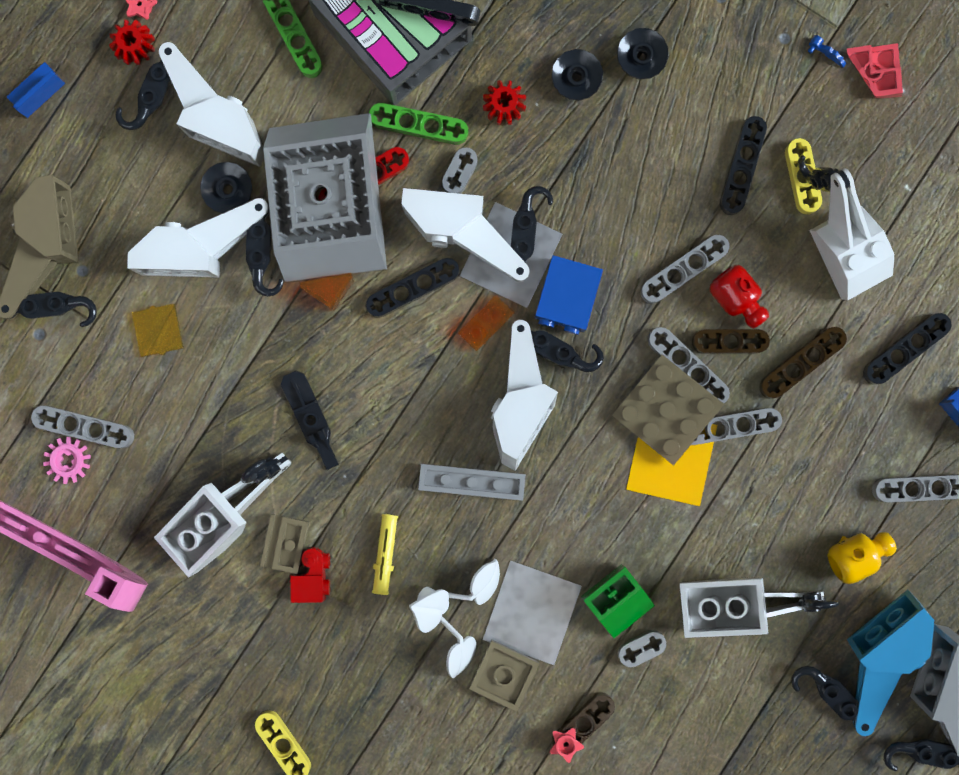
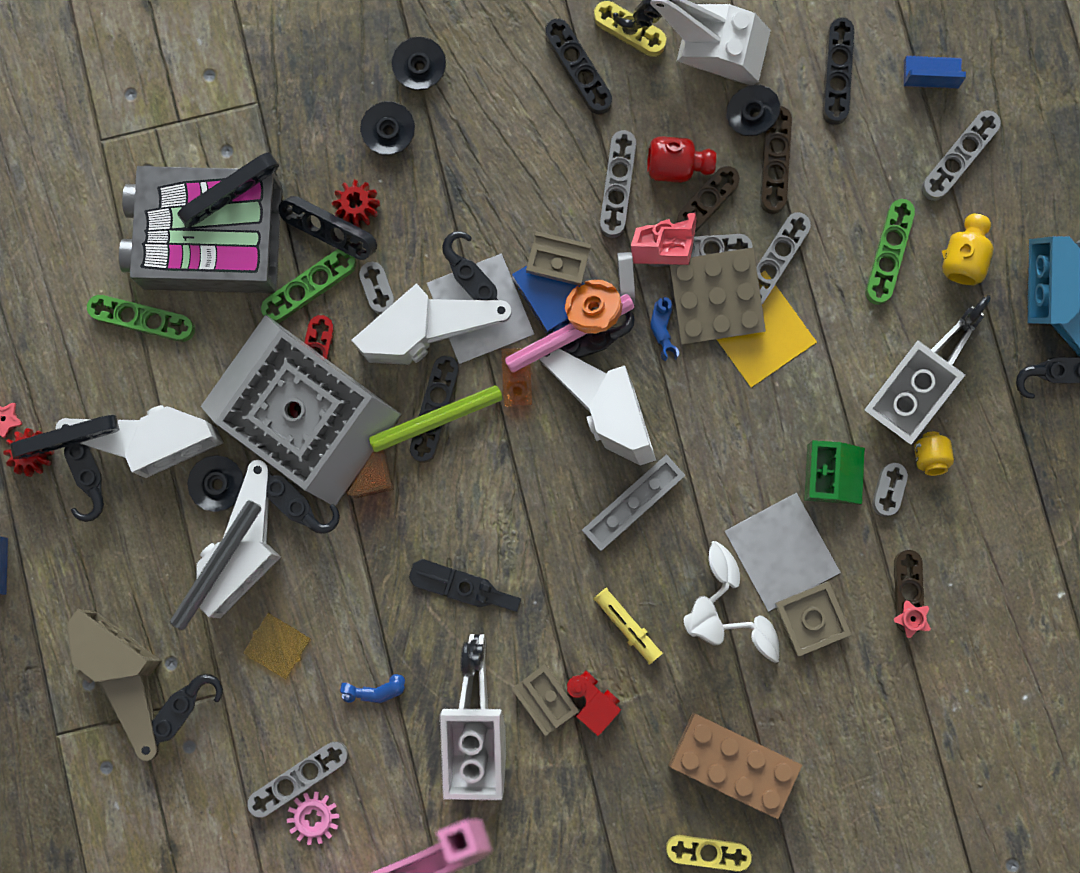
camera: 40 degrees left, 5 degrees down
(159, 56) = (64, 437): none -> black beam
(165, 240) = (215, 565): none -> dark grey axle
(187, 429) = (376, 695): none -> blue arm
(356, 712) = (735, 765): none -> medium nougat brick
(405, 295) = (435, 418): none -> lime axle
(477, 127) = (326, 231): none -> black beam
(548, 332) = (553, 342): none -> bright pink axle
(582, 321) = (590, 295): none -> orange plate
(592, 277) = (558, 258): none -> dark tan plate
(610, 388) = (658, 325): none -> blue arm
(623, 335) = (626, 274): none -> light grey beam
(672, 339) = (664, 242): none -> coral slope
(694, 657) = (933, 453): none -> yellow head
(811, 503) = (886, 250): none -> bright green beam
(826, 306) = (749, 101): none -> black dish

